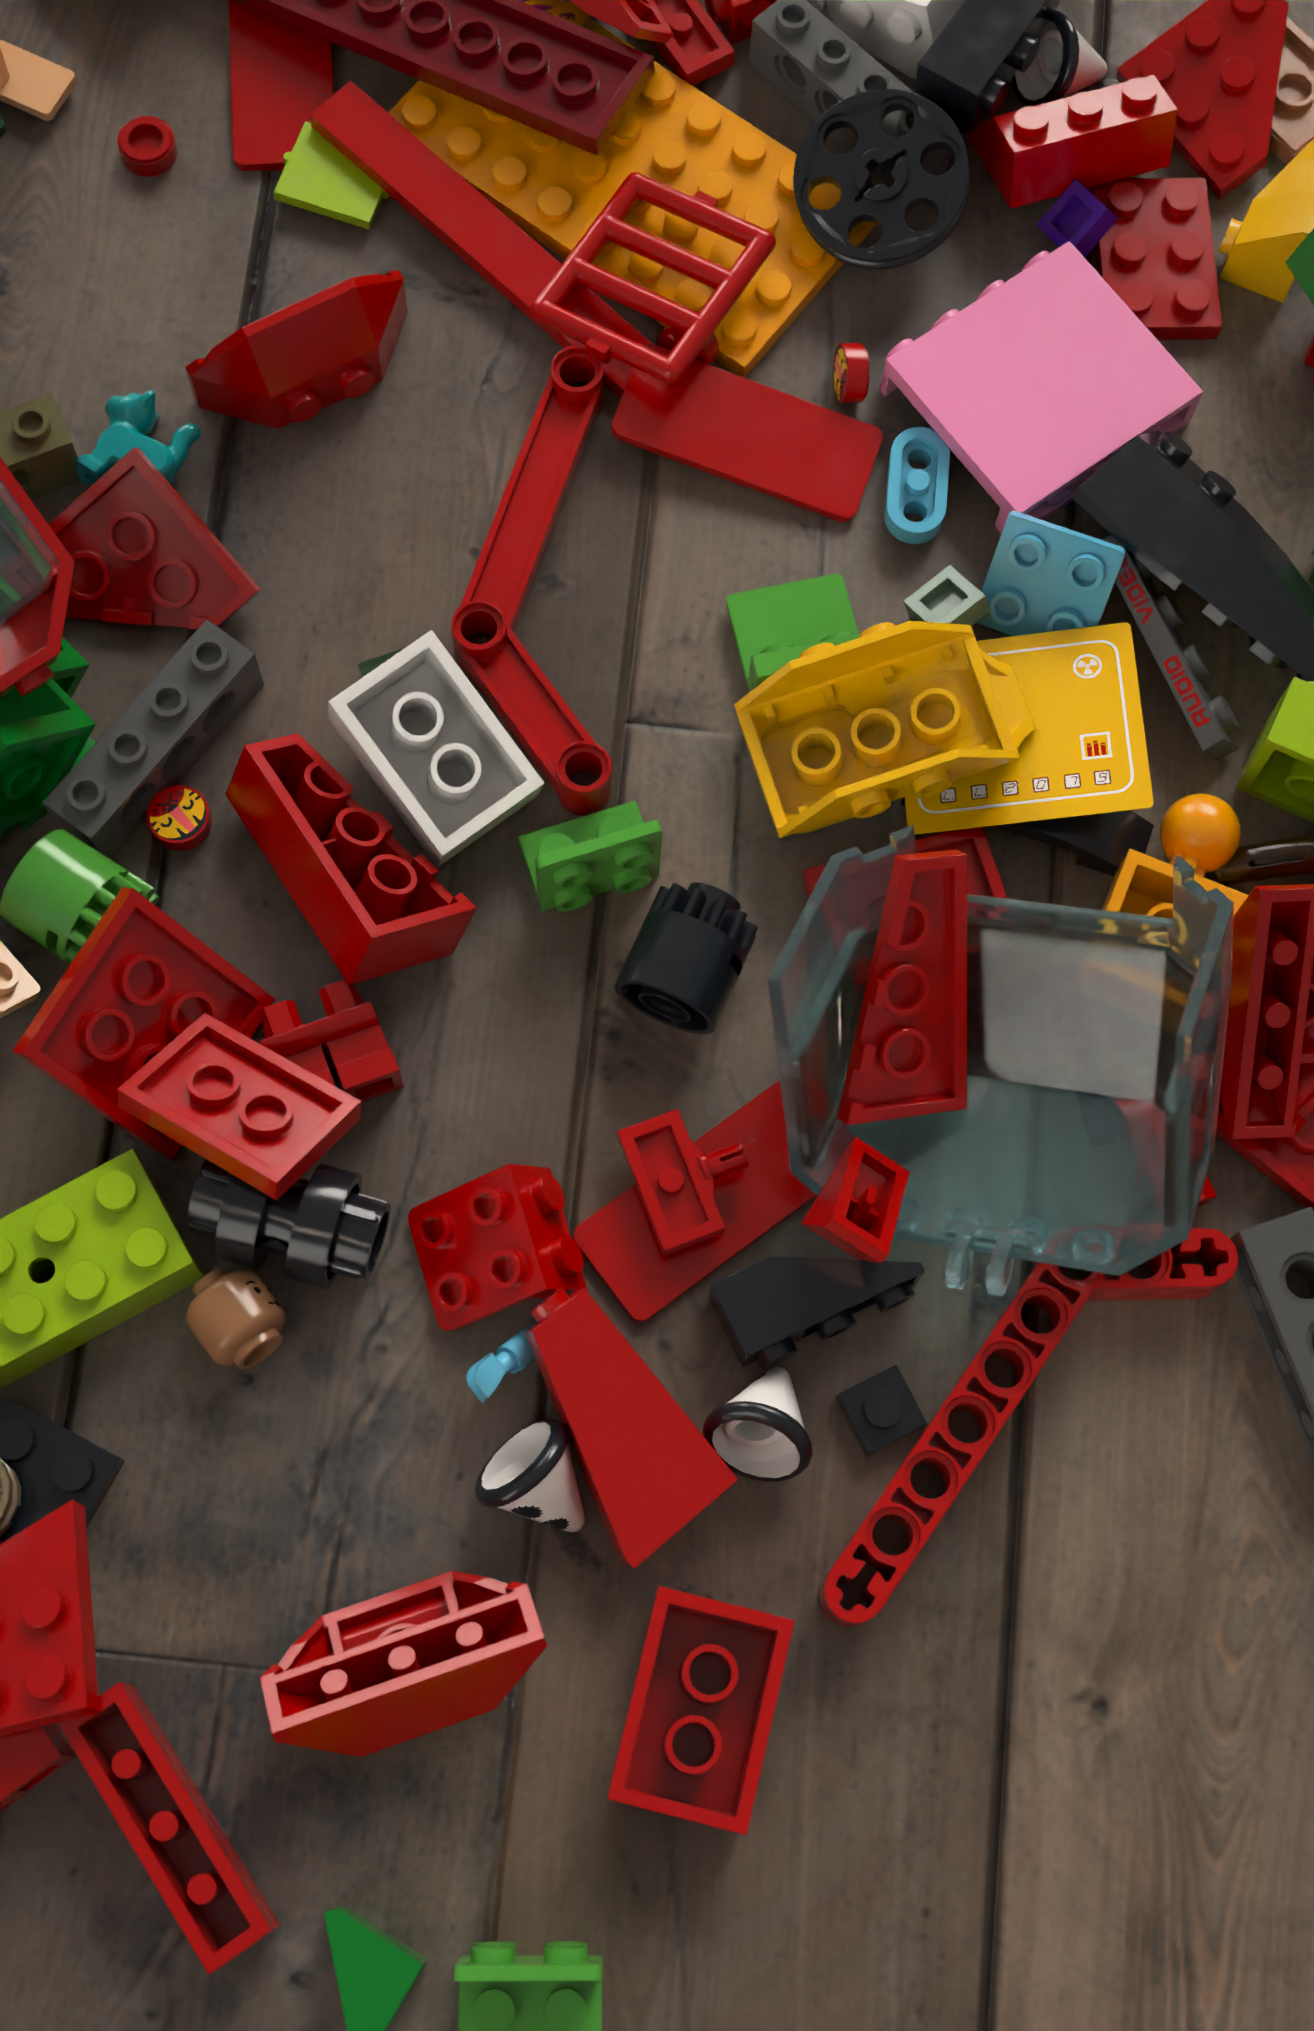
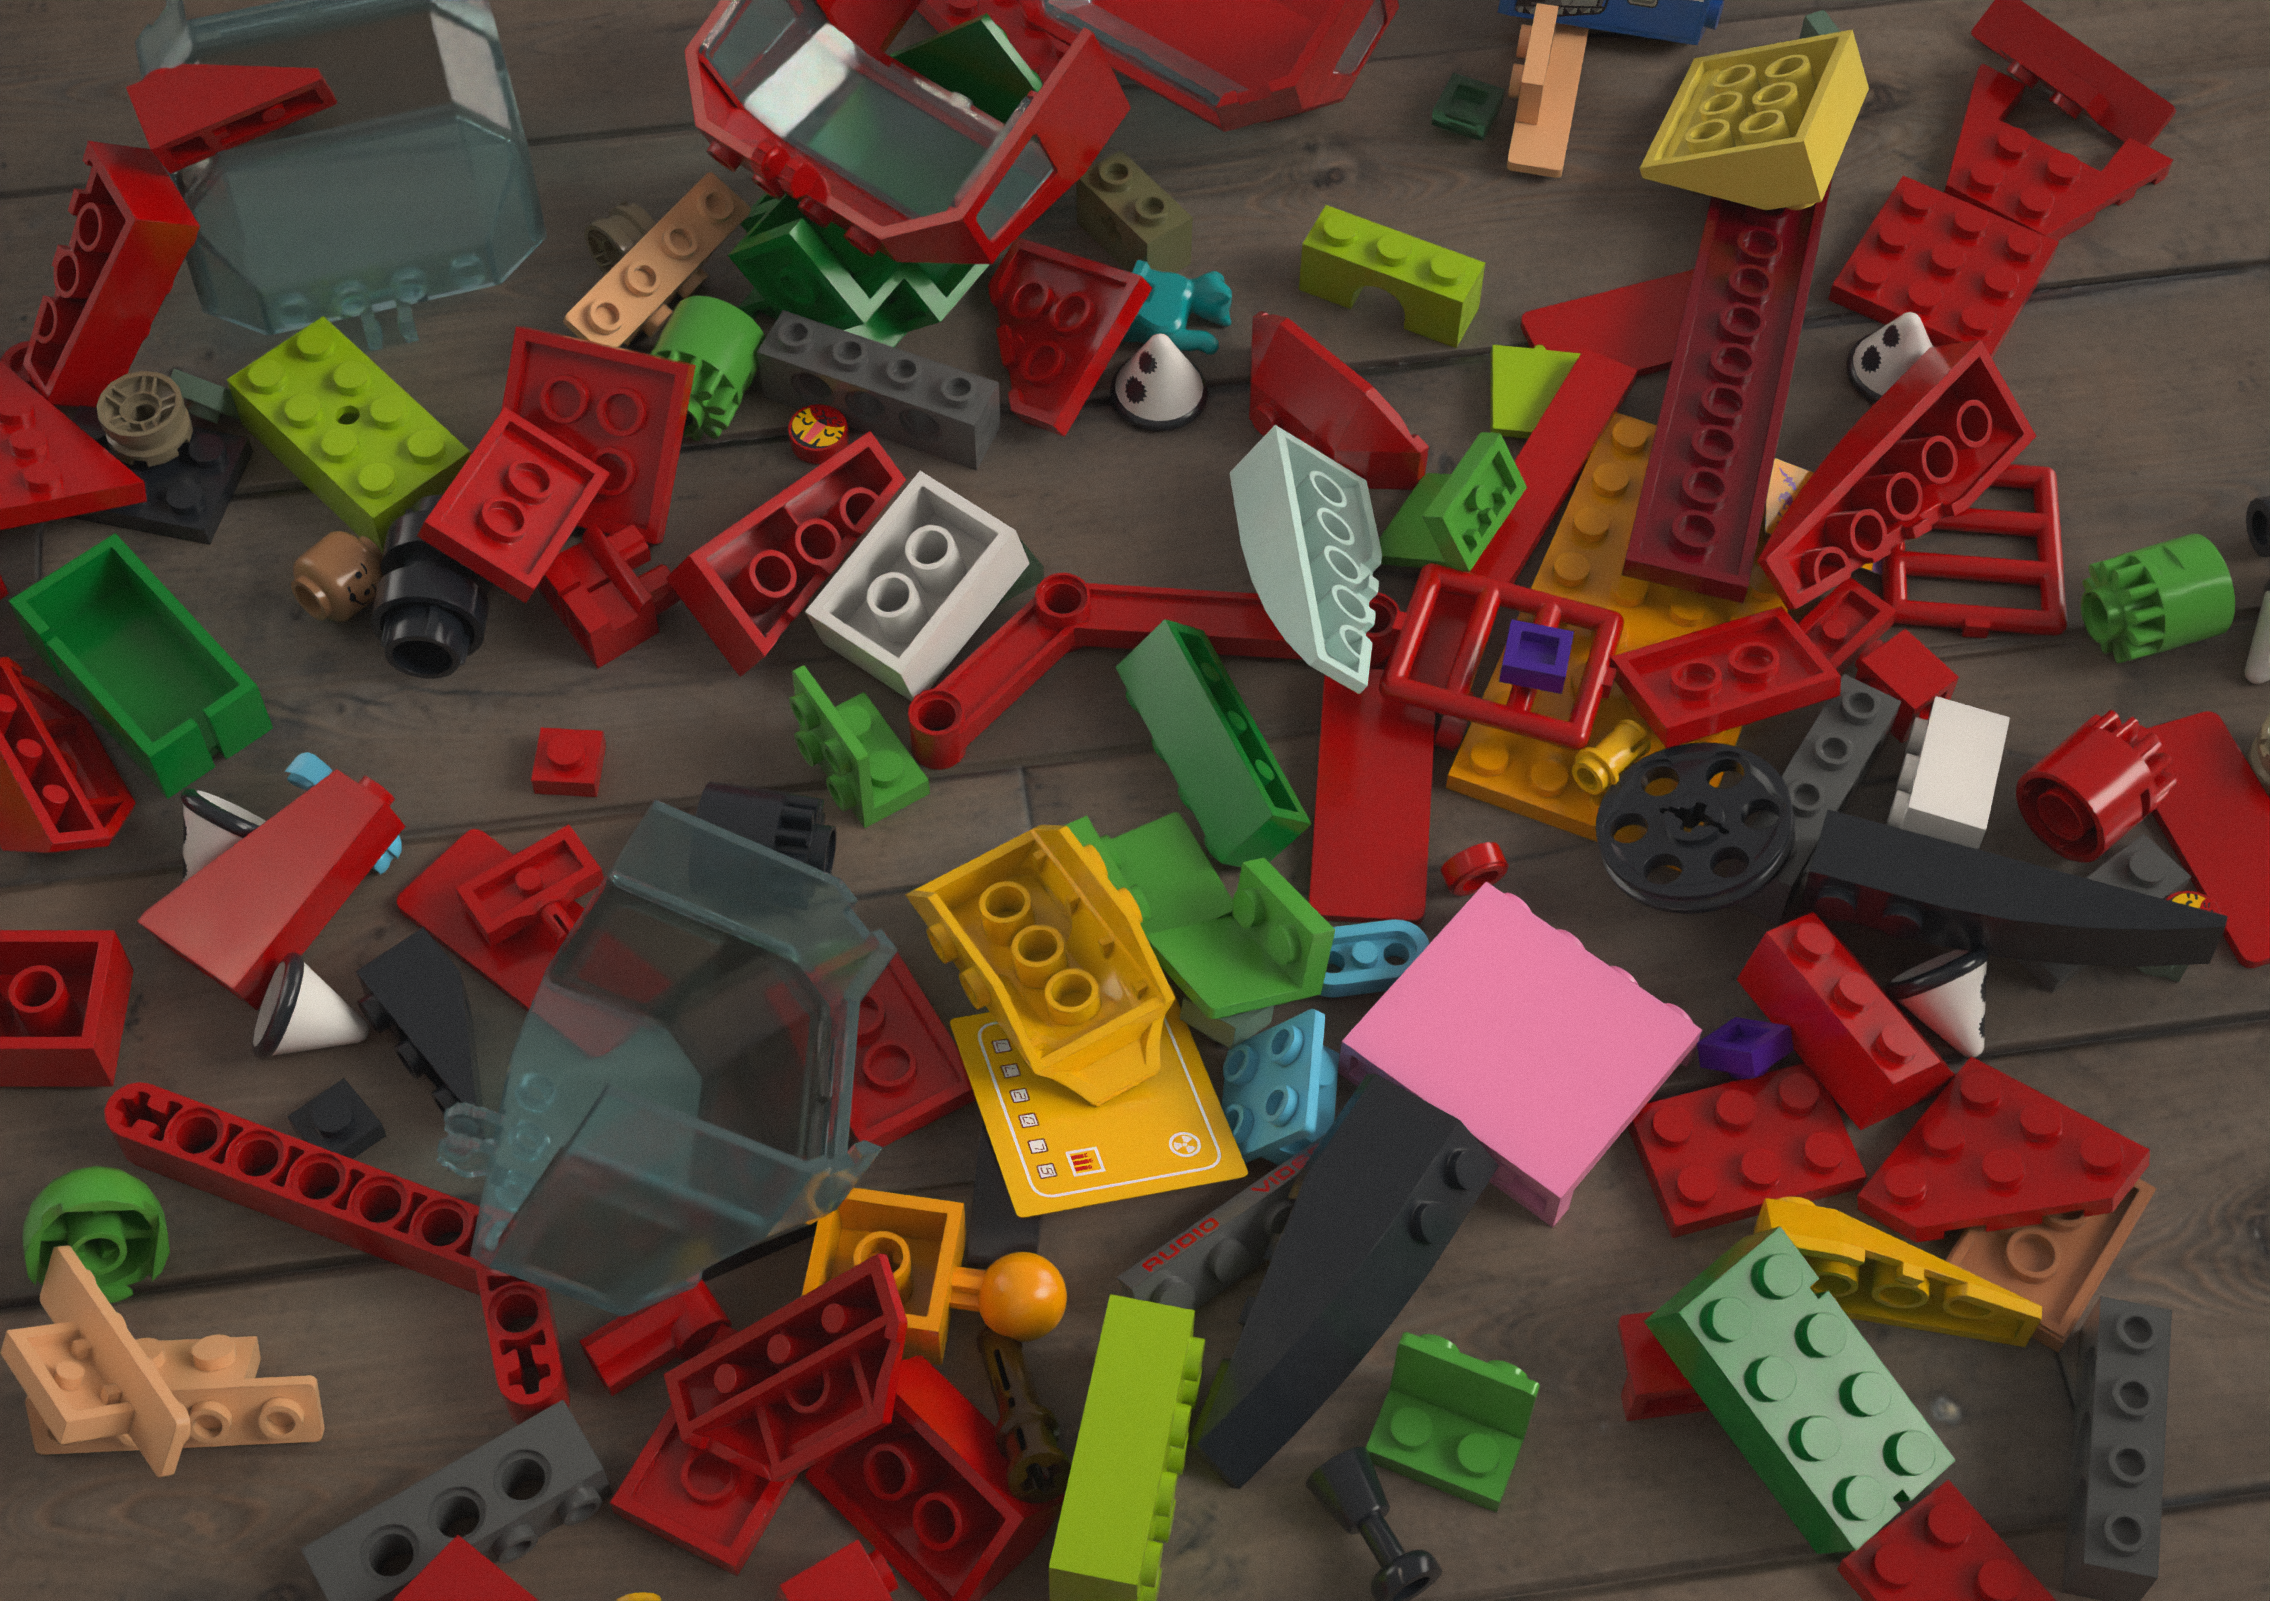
camera: 80 degrees right, 15 degrees down
(133, 271) = (1431, 282): none -> lime arch
(147, 146) = (1511, 246): red tile -> none
(227, 493) = (1159, 387): none -> white hat
(298, 1537) = (141, 664): none -> green piece
(475, 280) = (1458, 513): none -> bright green bracket
(494, 401) = (1310, 552): none -> light aqua wedge
(495, 1245) = (448, 768): red bracket -> none
(517, 1128) = (568, 762): none -> red plate
(676, 544) = (1211, 745): none -> green brick
(688, 238) = (1536, 656): none -> dark purple plate
(732, 108) = (1725, 676): none -> red plate
(792, 235) = (1600, 766): none -> yellow pin
(860, 1203) = (513, 1021): red slope -> none
(903, 560) = (1255, 959): none -> bright green bracket
(914, 1005) = (719, 1024): red wing -> none
(967, 1650) = (108, 1223): none -> bright green cylinder
(1139, 1590) = (221, 1397): none -> light nougat bracket
(1150, 1654) = (91, 1372): none -> light nougat bracket

